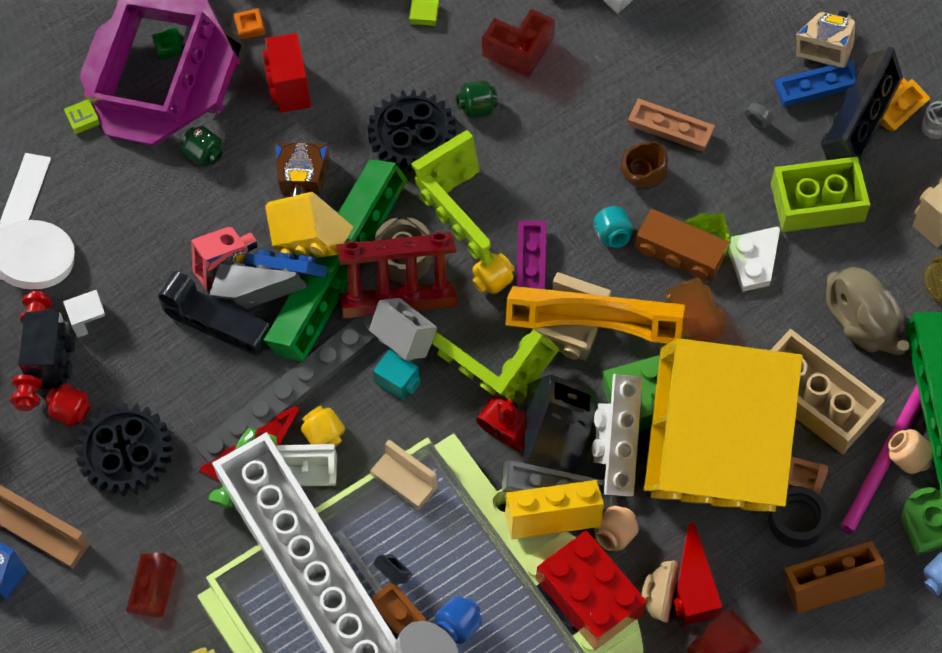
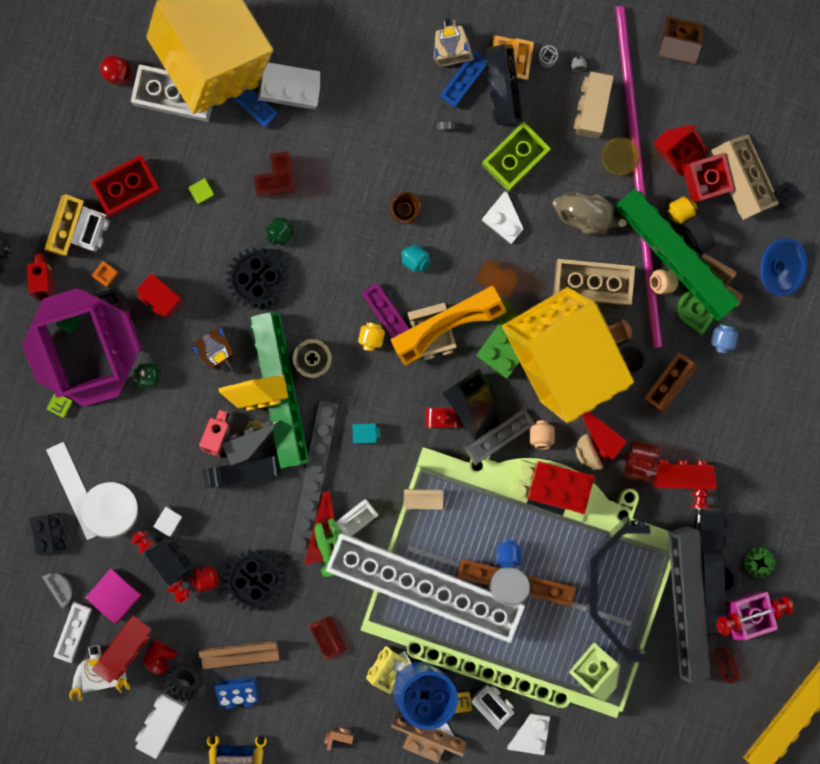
camera: 40 degrees left, 25 degrees up
(305, 264) = (258, 417): blue plate -> none
(322, 427) = (349, 492): yellow head -> none
(393, 569) = (456, 552): black tile -> none
(402, 329) = (352, 409): light grey brick -> none
(419, 297) = (332, 388): dark red fence -> none
(439, 174) = (298, 298): lime bracket -> none
(525, 367) = (403, 401): lime bracket -> none
(554, 509) = (509, 455): yellow brick -> none
(618, 435) = (509, 386): white bracket -> none
(671, 125) = (400, 167): nougat plate -> none
(681, 245) = (461, 243): dark orange brick -> none
(711, 222) = (462, 219): clear neon green bracket -> none

